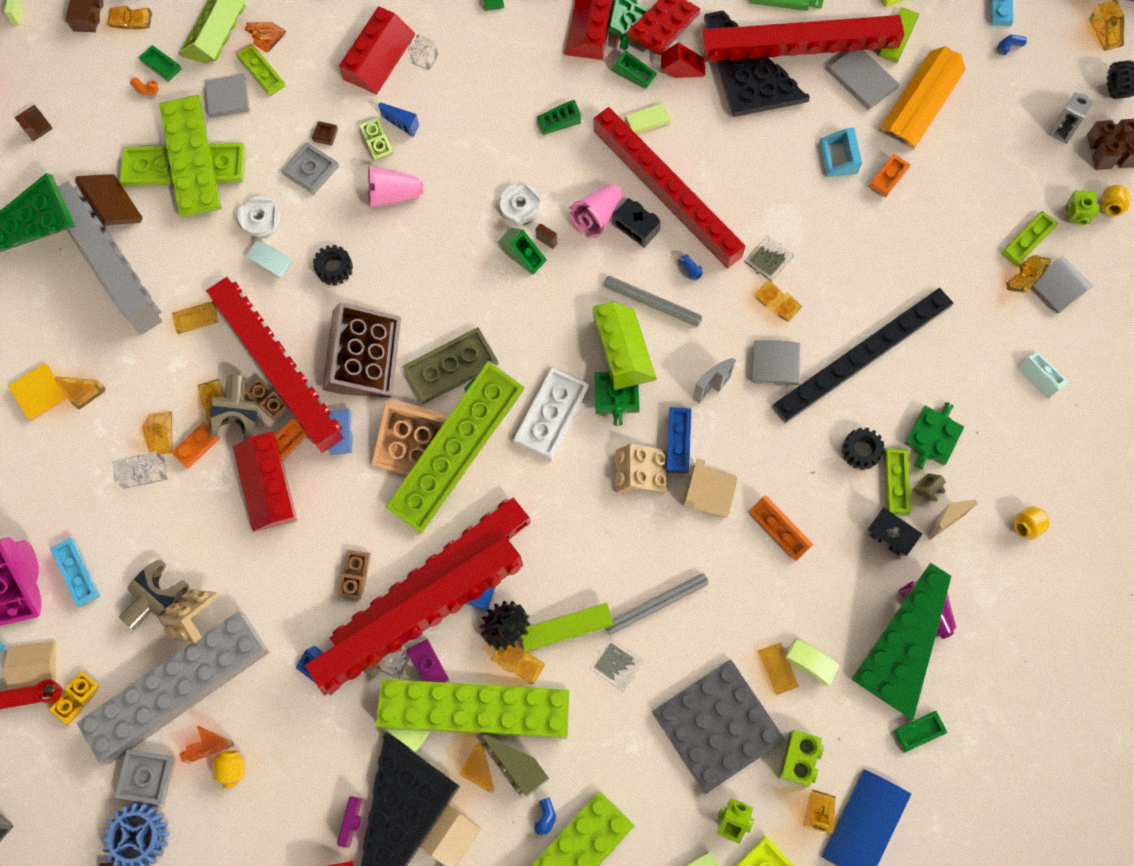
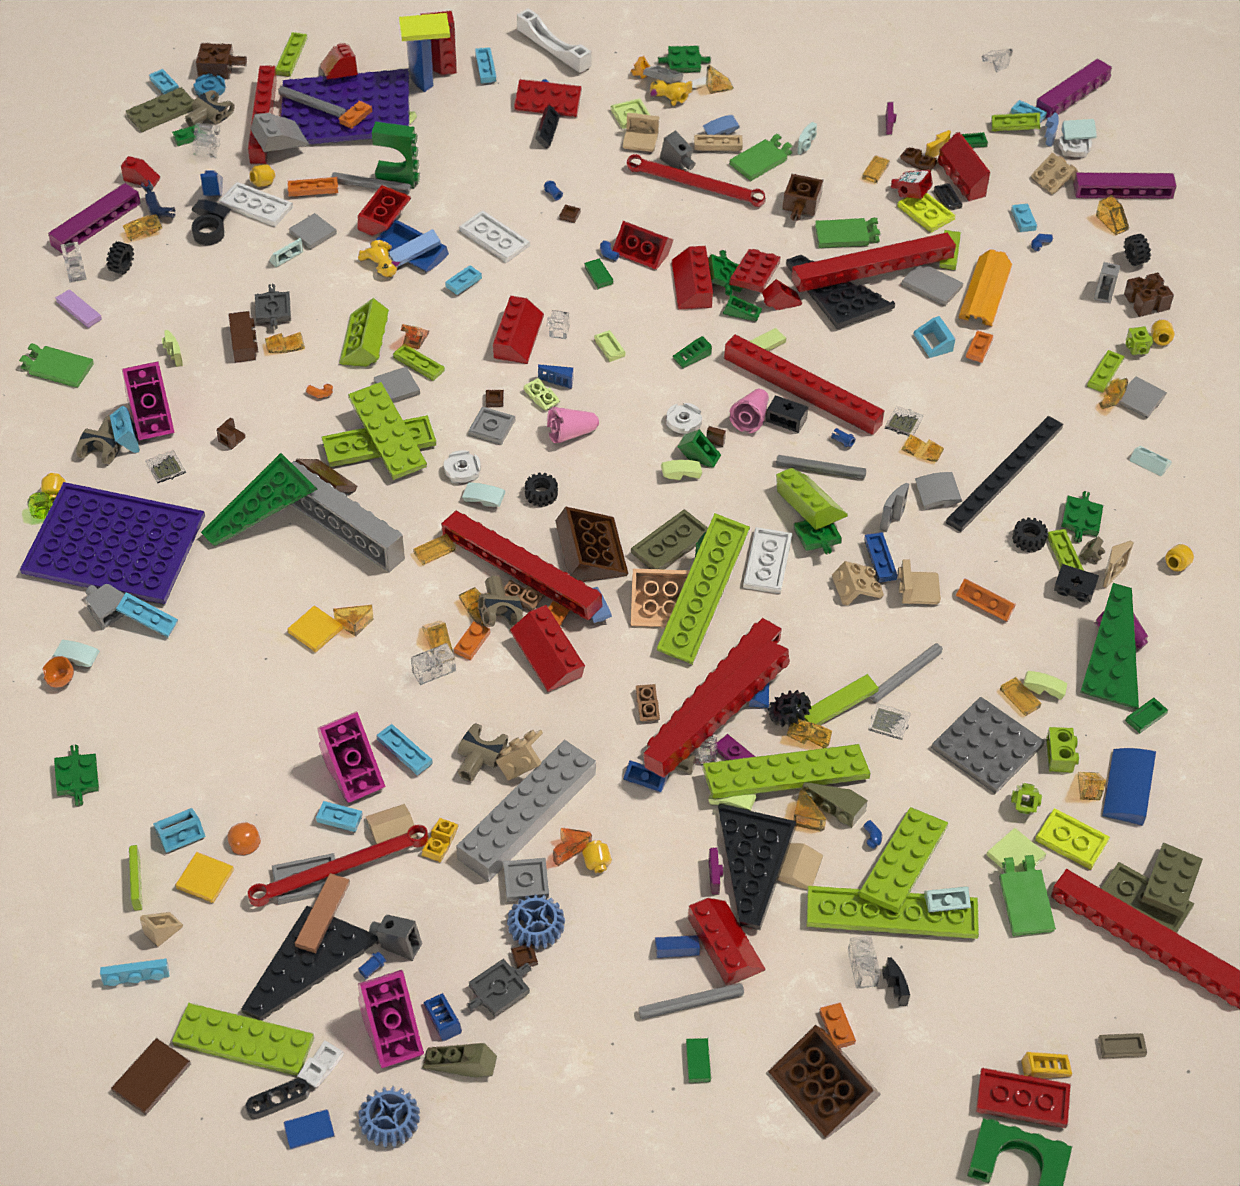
camera: 20 degrees left, 20 degrees down
(160, 63) = (326, 372): green tile -> none
(472, 89) = (609, 345): none -> yellowish green tile
(493, 270) = (677, 468): none -> yellowish green slope

